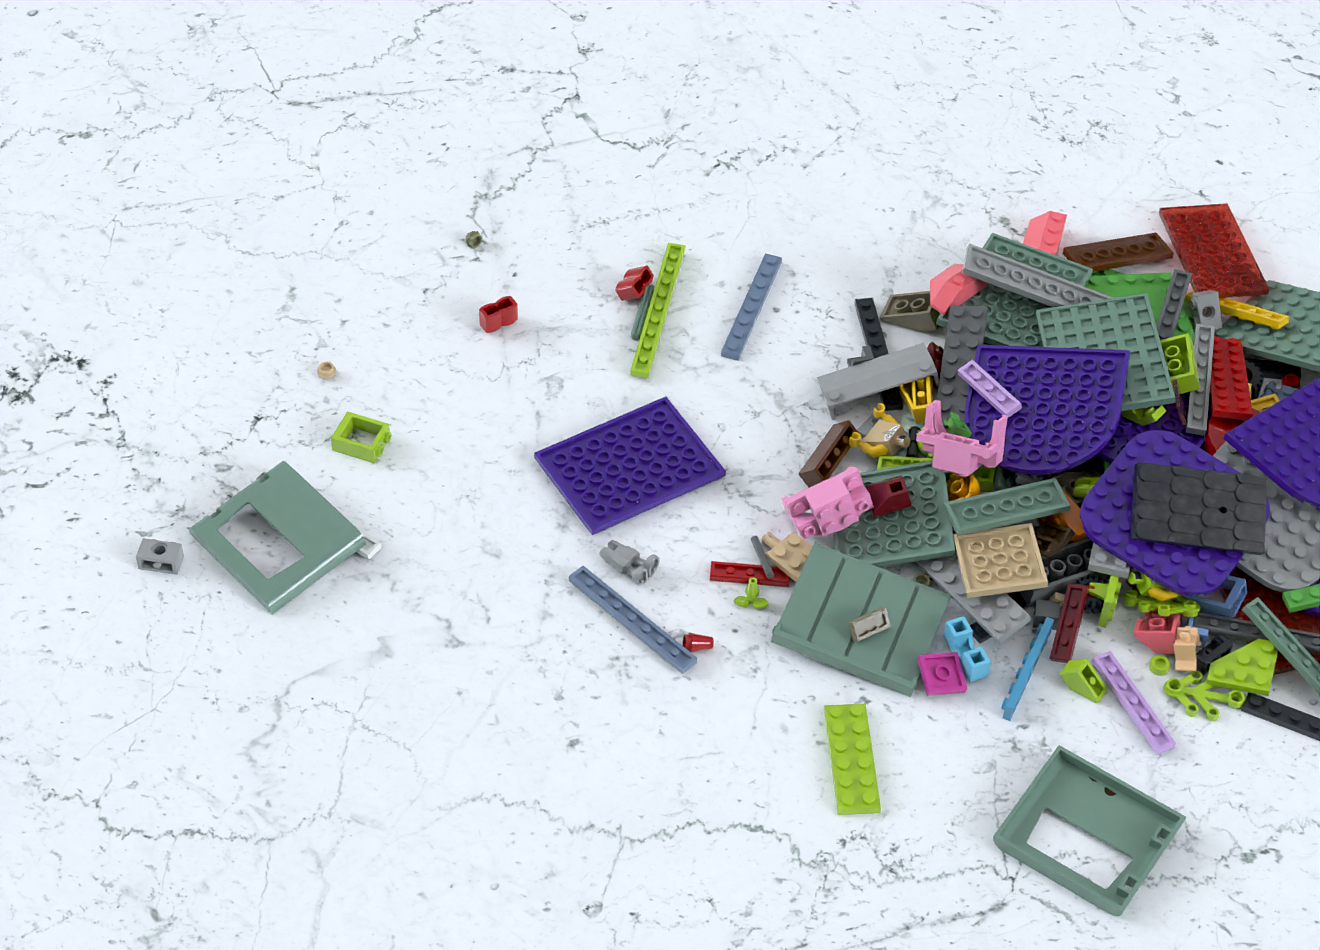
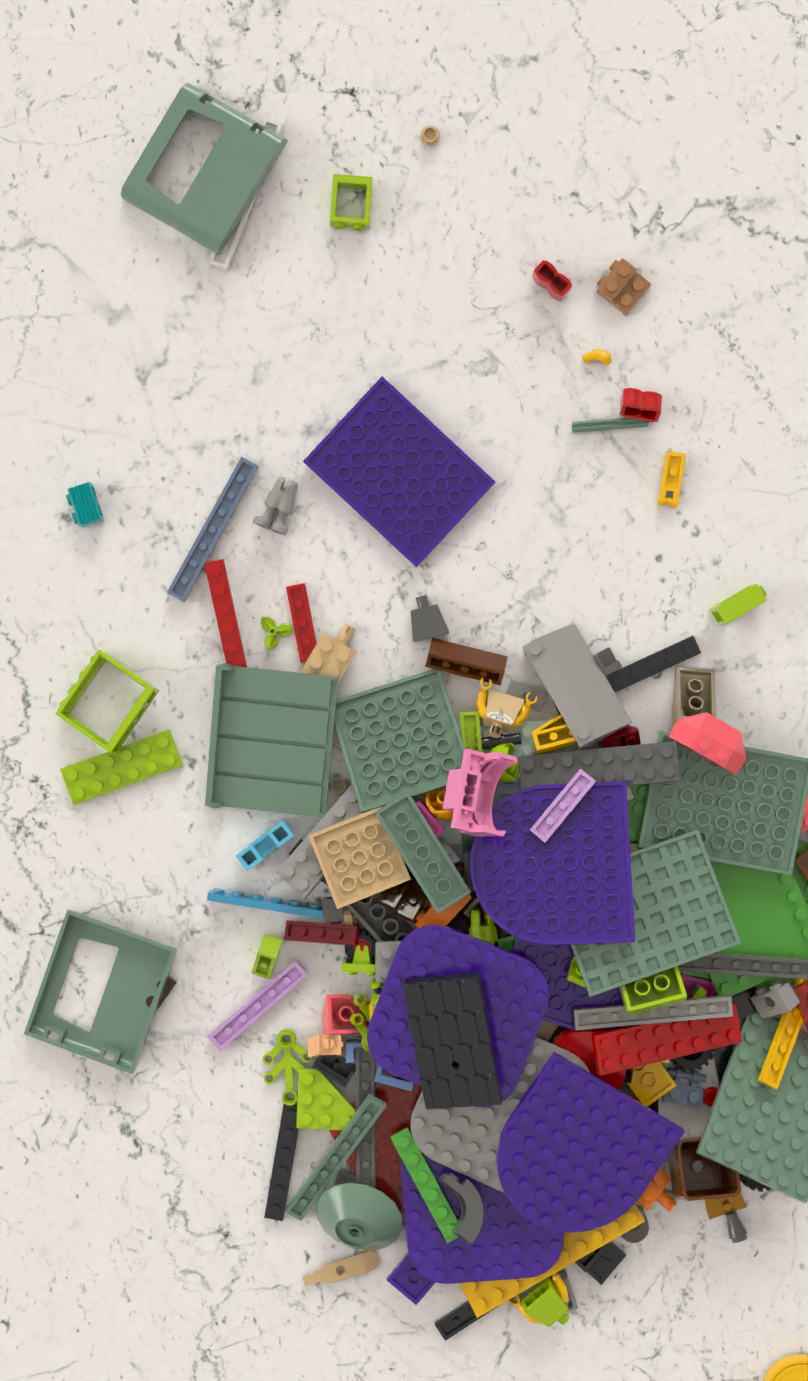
camera: 75 degrees right, 40 degrees up
(159, 556) = (144, 58): light grey brick -> none
(473, 239) = (658, 218): olive plate -> none
(522, 275) = (622, 286): none -> medium nougat plate
(568, 716) = (85, 504): none -> teal brick
(579, 301) = (597, 354): none -> yellow arm
(657, 310) = (616, 439): lime plate -> none
(697, 642) = (203, 596): red cone -> none
(708, 282) = (671, 478): none -> yellow plate
(719, 626) = (225, 613): none -> red plate
(751, 307) = (653, 532): sand blue plate -> none
(762, 557) = (322, 629): dark grey bar -> none
(780, 476) = (427, 621): none -> dark grey torso
(810, 728) = (132, 718): none -> lime window
(830, 504) = (382, 682): bright pink piece -> none
(836, 258) = (738, 604): none -> lime window
(869, 624) = (257, 751): plate -> none
(889, 495) = (416, 732): dark red slope -> none
(942, 673) = (232, 827): dark pink plate -> none
(957, 427) = (513, 782): bright green plate -> none
(1025, 279) = (731, 828): light grey plate -> none
(1159, 665) = (311, 1021): lime tile -> none
(1179, 402) = (602, 998): clear pink piece -> none

